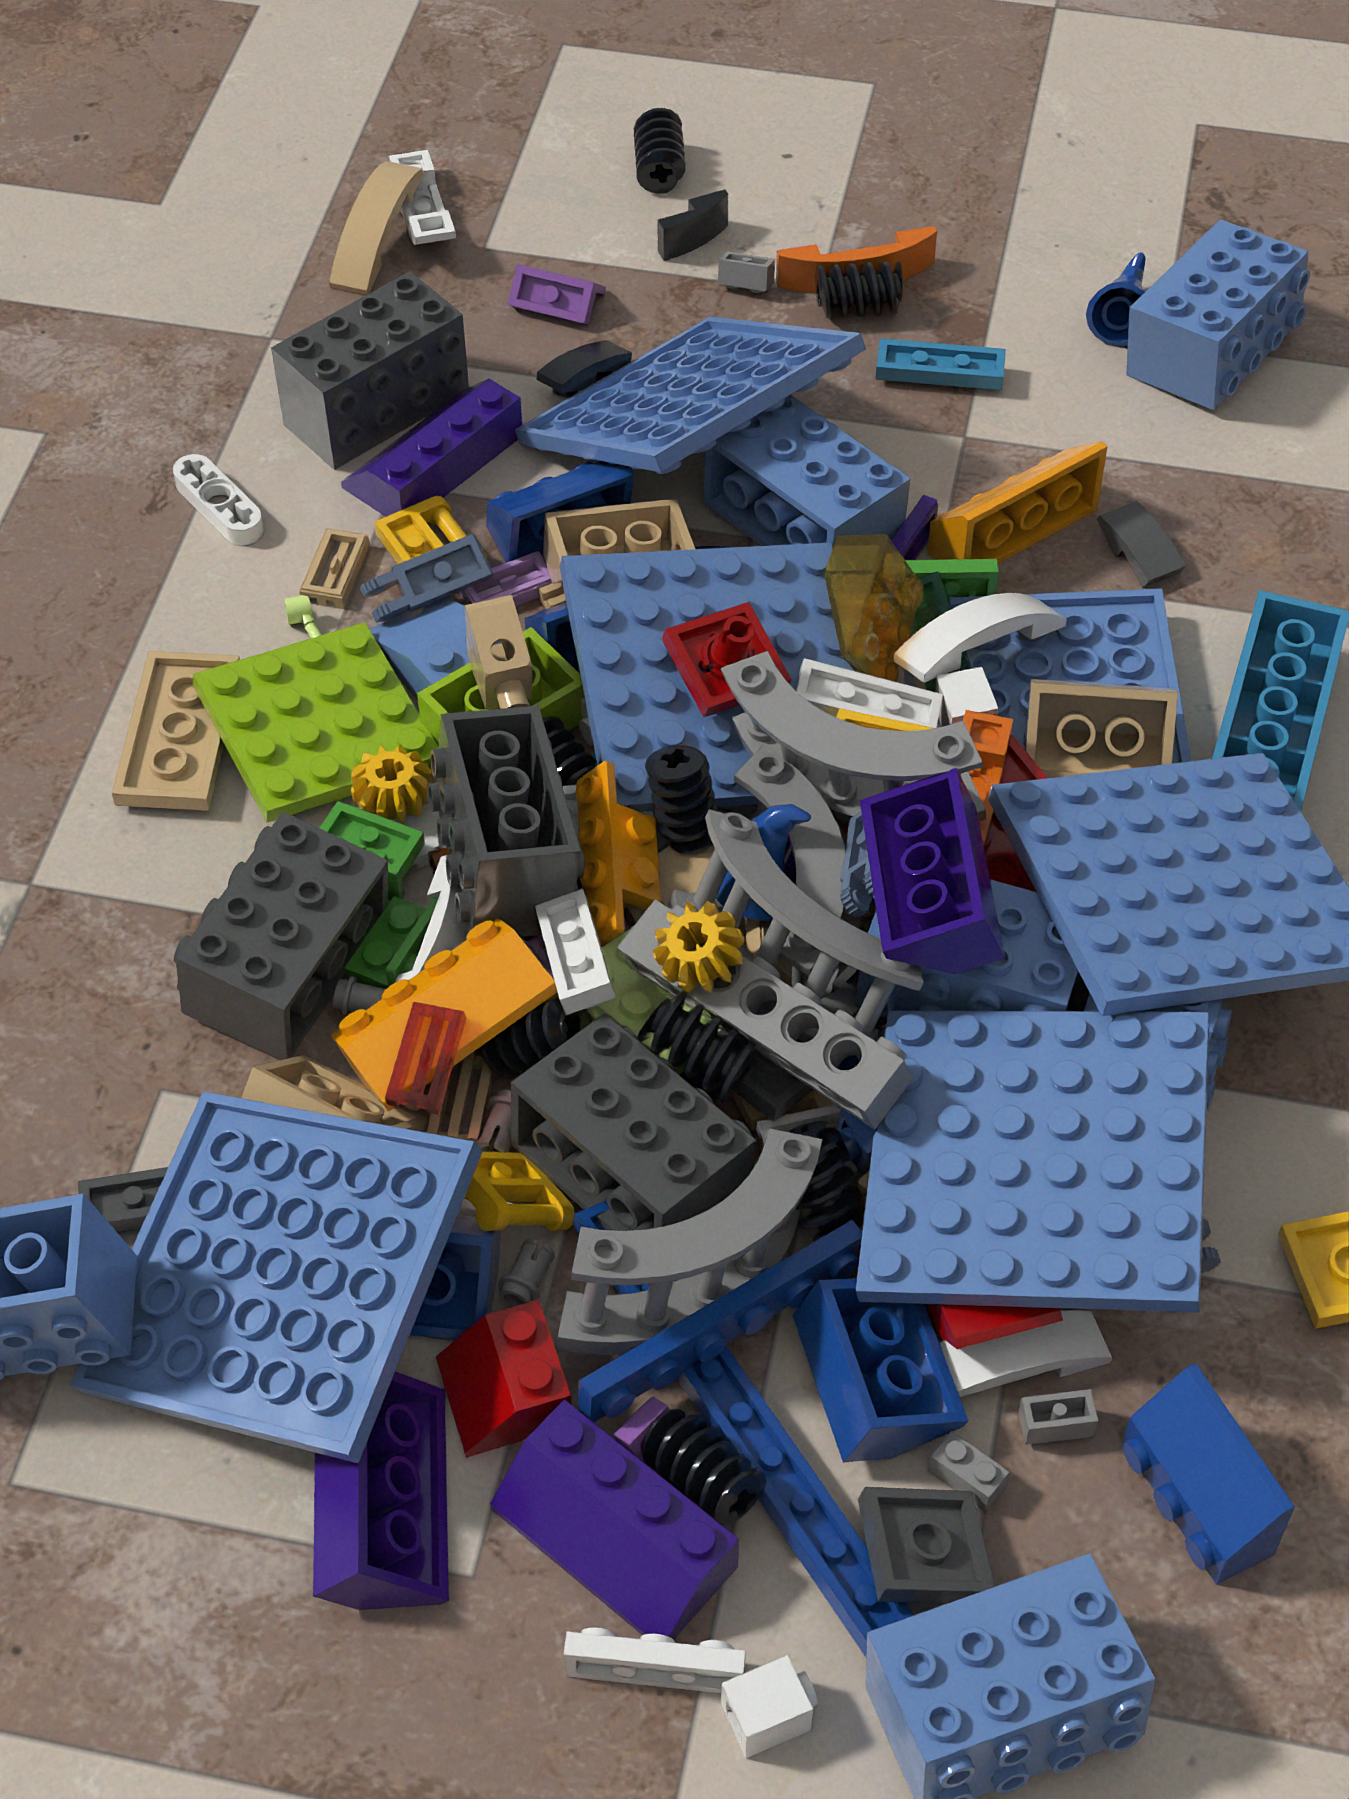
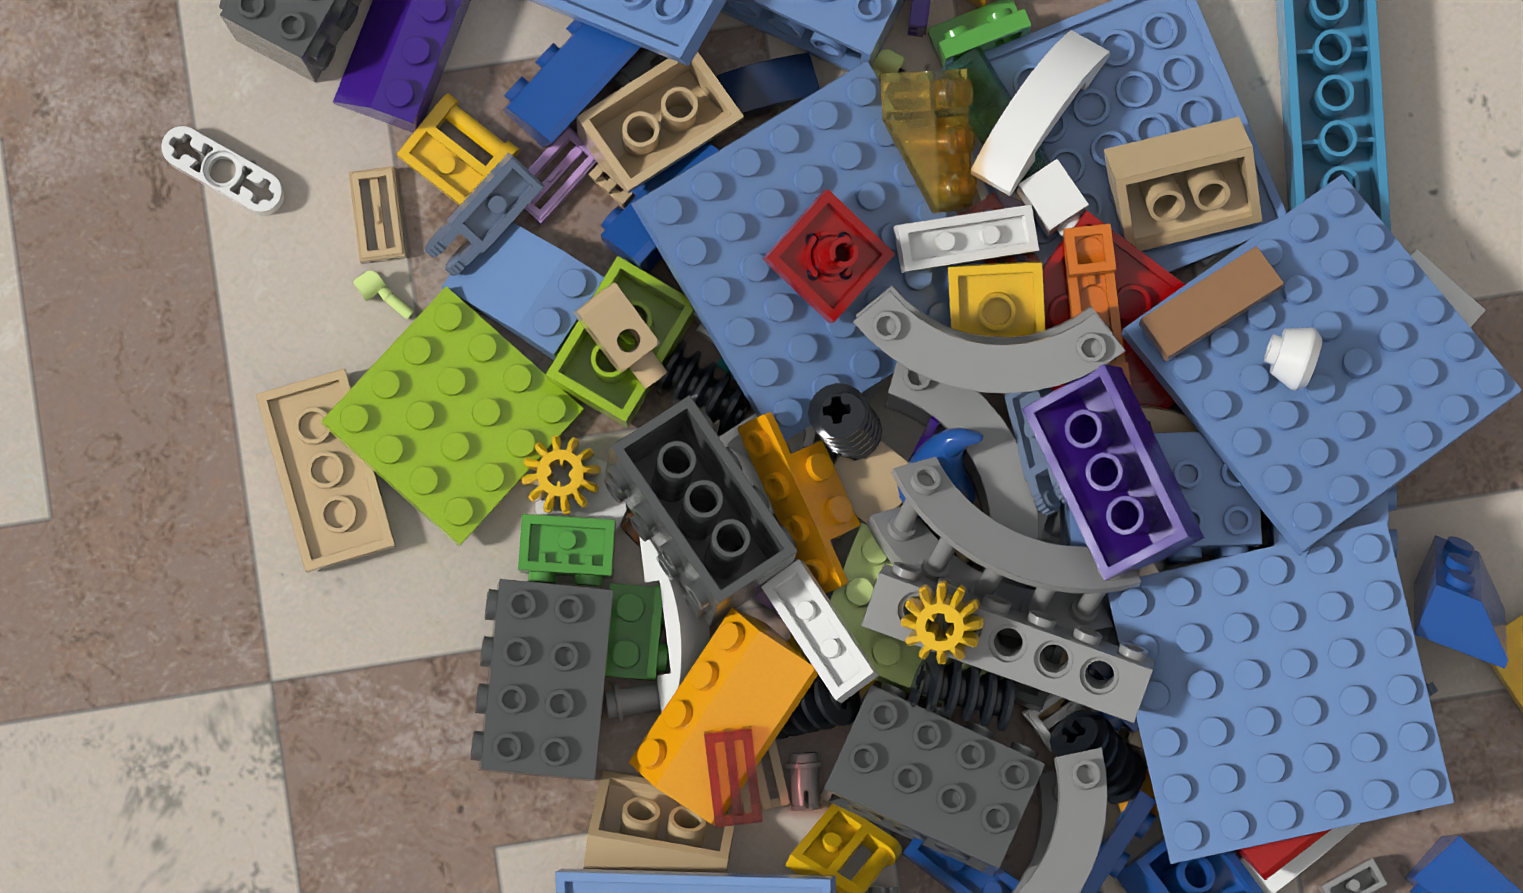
camera: 20 degrees left, 30 degrees up
(1088, 783) = (1211, 303): none -> medium nougat tile
(1158, 836) = (1294, 356): none -> white cone
(1266, 1145) = (1459, 602): none -> blue slope

